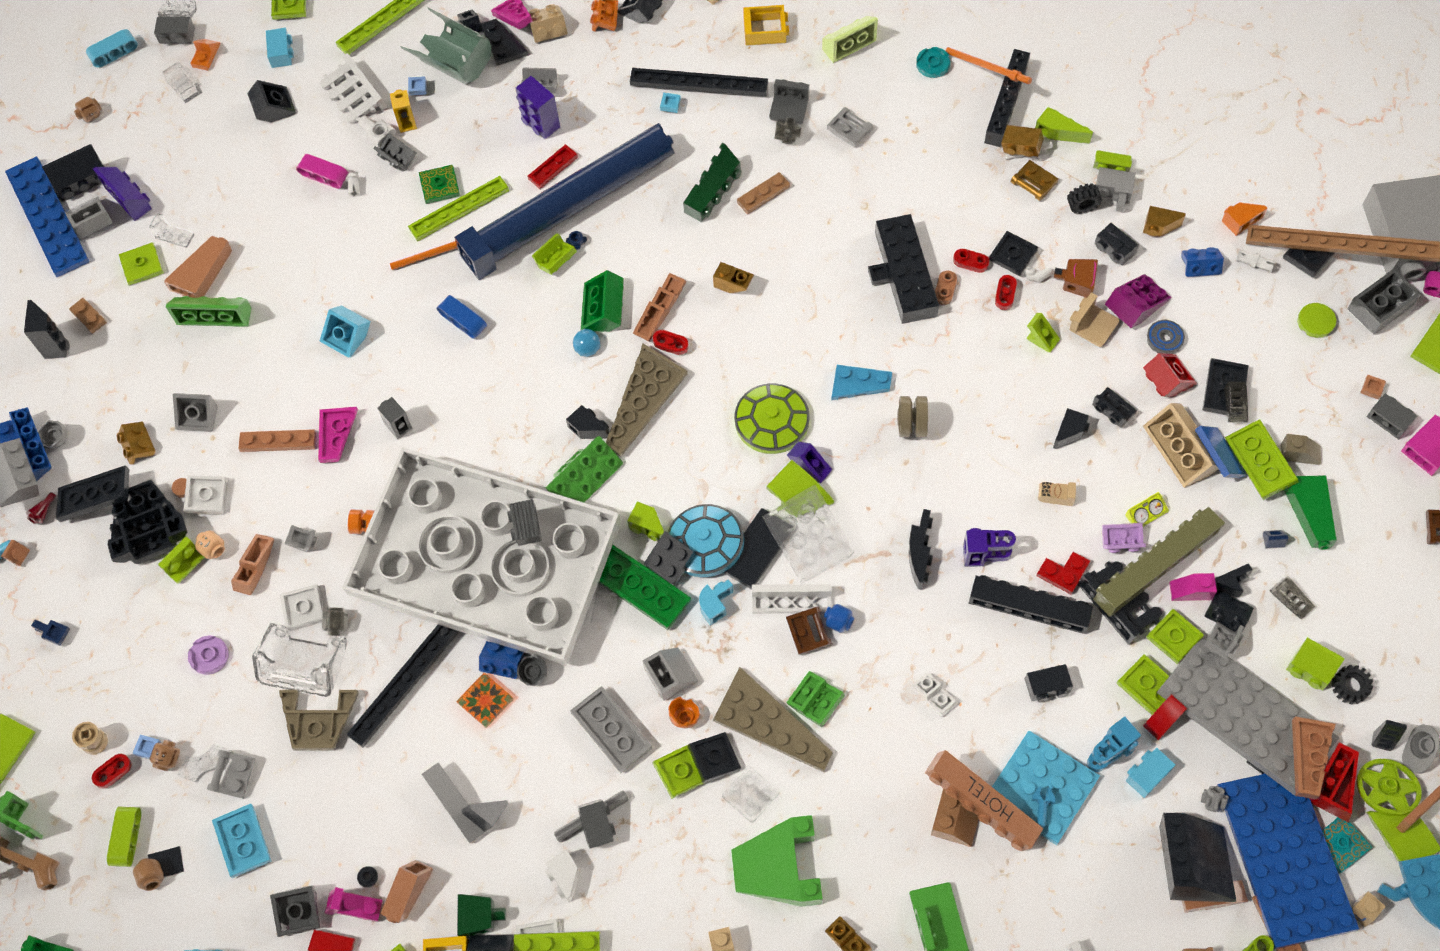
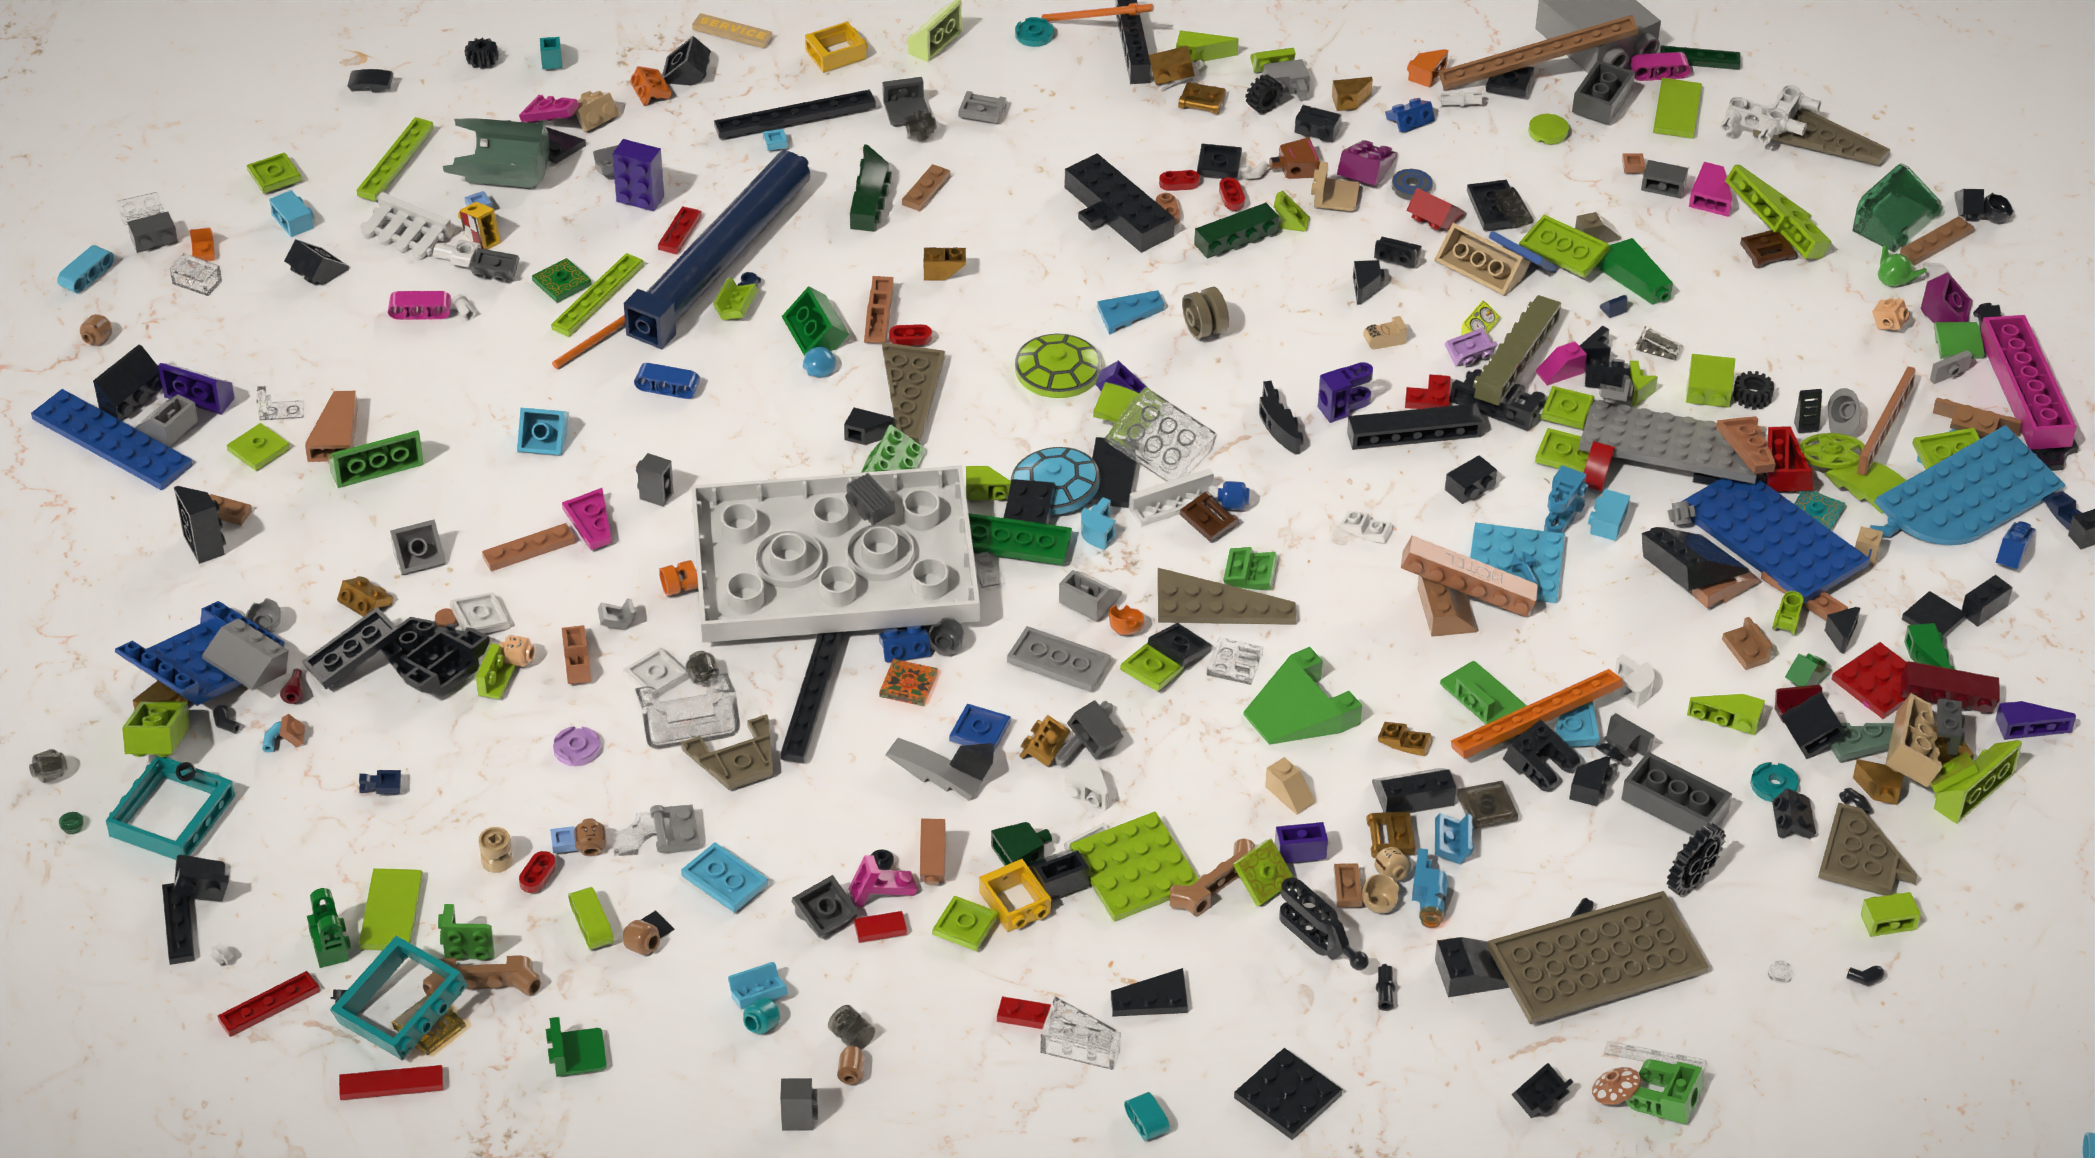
camera: 30 degrees left, 20 degrees down
(512, 775) = (979, 726): none -> blue plate
(554, 812) = (1045, 741): none -> pearl gold bracket
(989, 333) = (1236, 230): none -> dark green brick
(1251, 639) = (1643, 384): none -> lime slope

